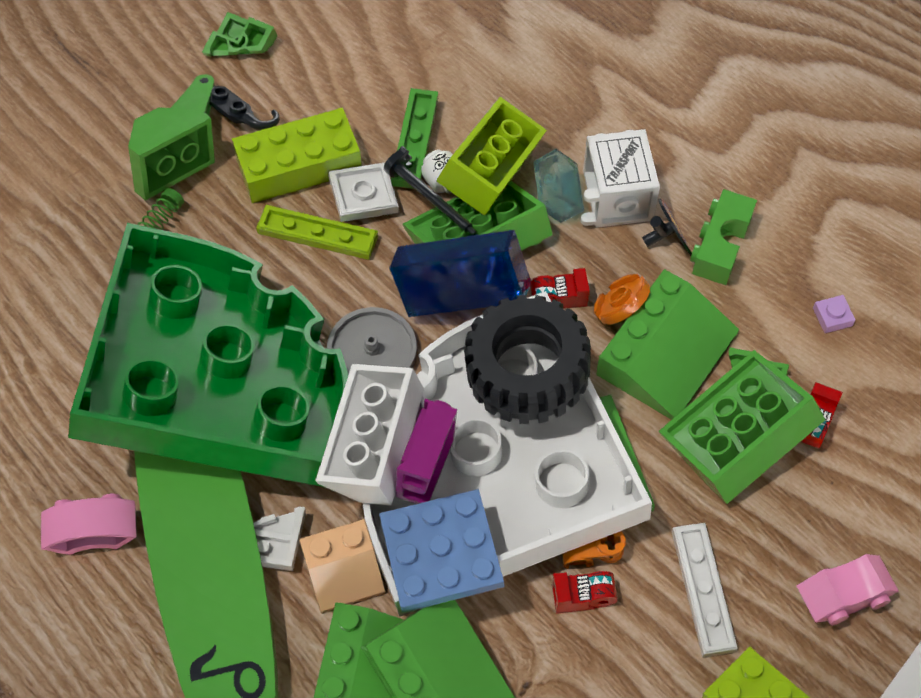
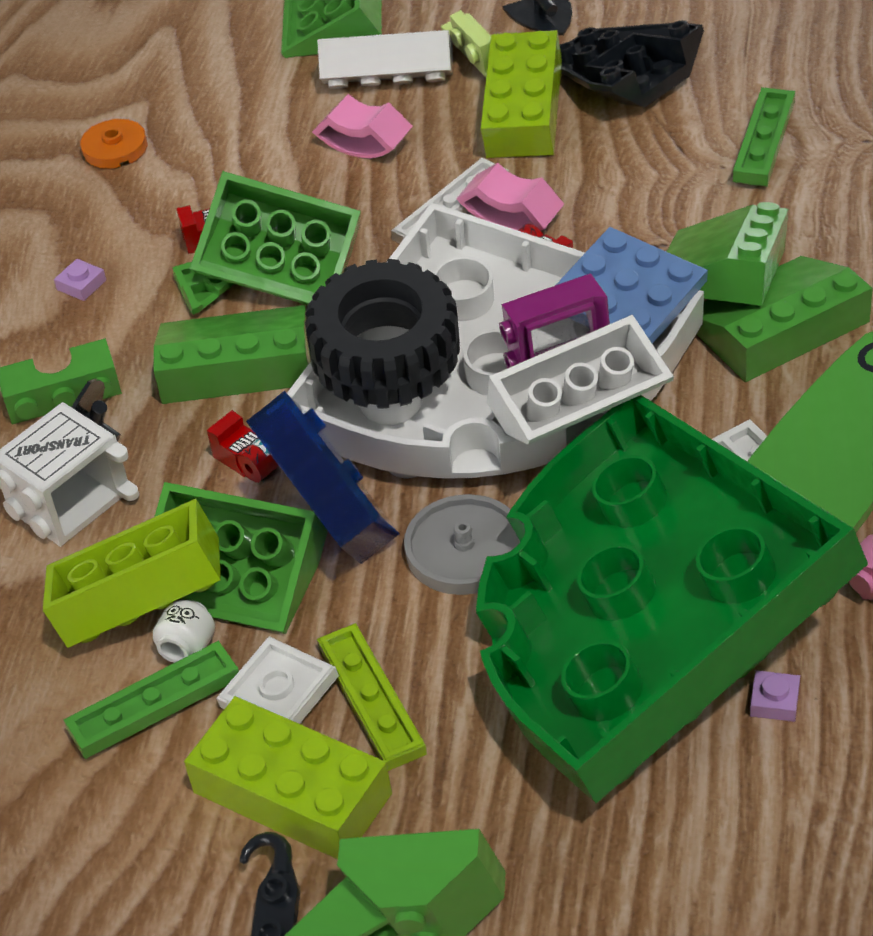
camera: 125 degrees left, 15 degrees down
(170, 198) = (556, 836): bright green piece -> none
(342, 565) = (704, 398): light nougat slope -> none
(399, 164) = (221, 656): black piece -> none
(558, 185) = (118, 513): clear light blue brick -> none
(623, 300) = (196, 383): orange plate -> none
(656, 616) = (510, 199): none -> bright pink brick

